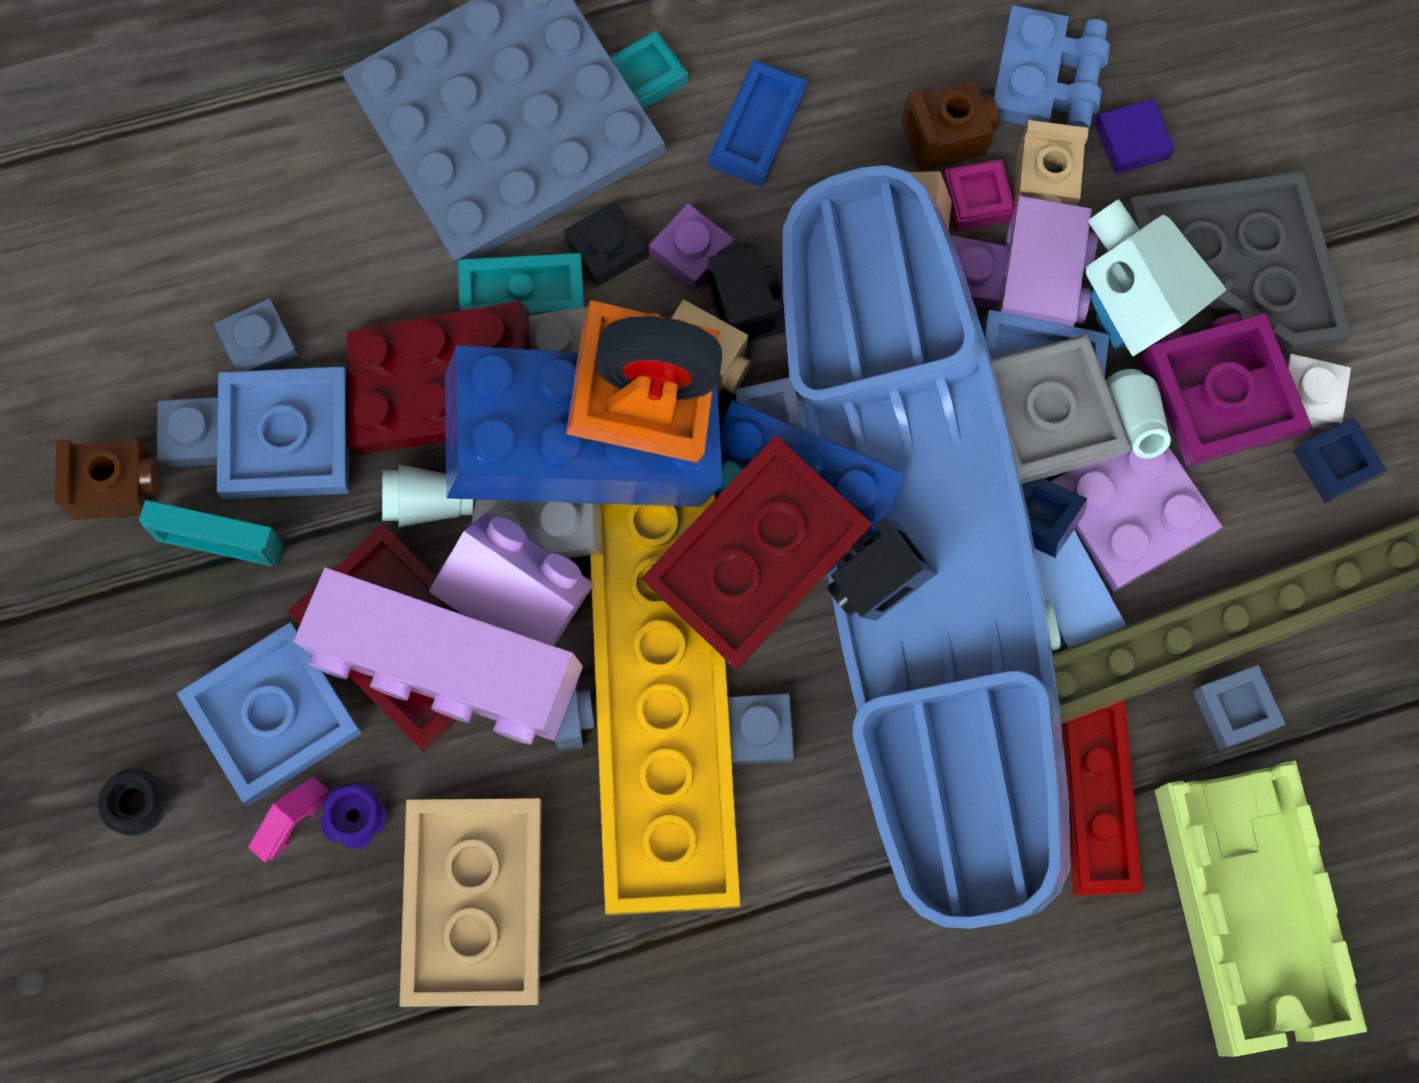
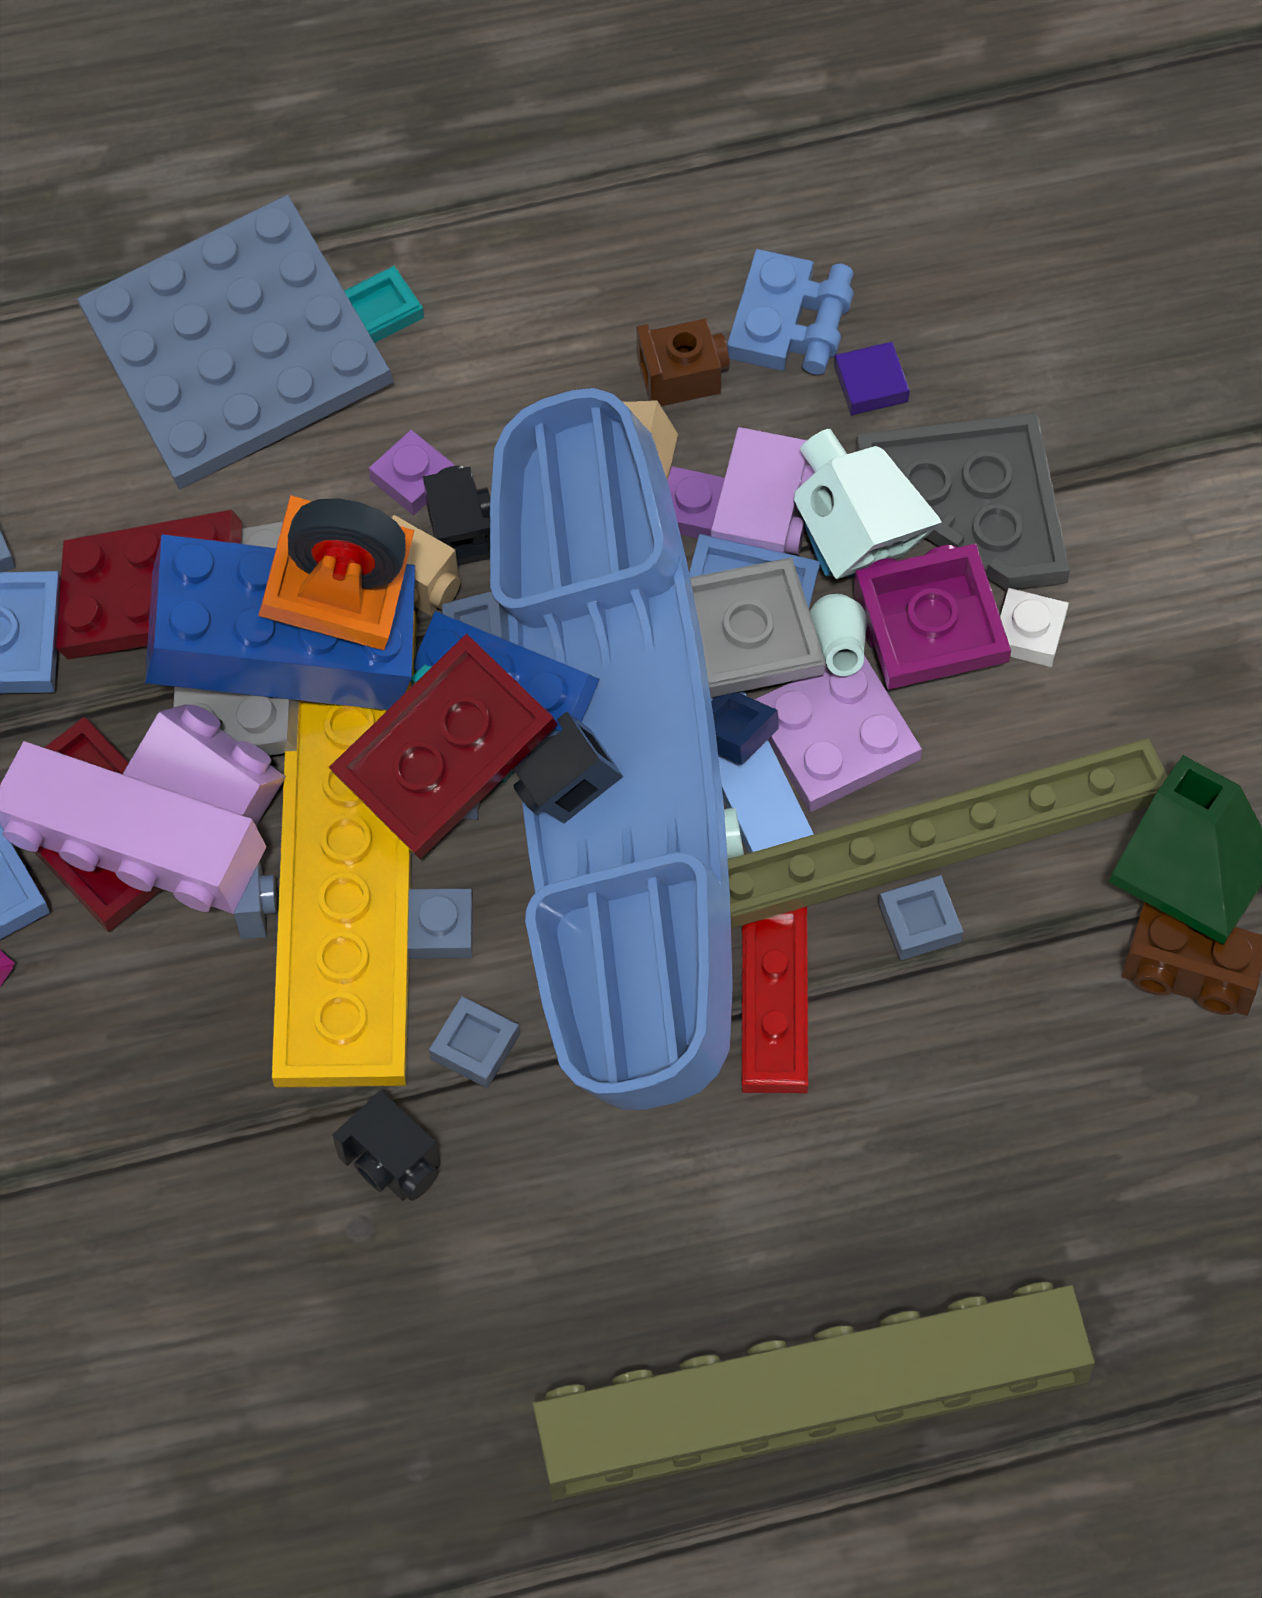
camera: 10 degrees right, 10 degrees down
(336, 809) = (33, 969): dark purple plate -> none
(418, 497) = (122, 695): light aqua cone -> none
(471, 903) = (143, 1067): tan plate -> none
(537, 281) = (253, 497): teal plate -> none
(606, 244) = (327, 466): black plate -> none
(733, 987) = (388, 1149): none -> black brick
(757, 123) = (489, 357): blue tile -> none
(806, 861) = (474, 1042): none -> sand blue plate
(979, 195) = (705, 429): dark pink tile -> none
(1050, 162) = (779, 397): tan brick -> none
(1259, 910) = (918, 1104): yellowish green piece -> none
(1339, 460) = (1047, 690): dark blue plate -> none

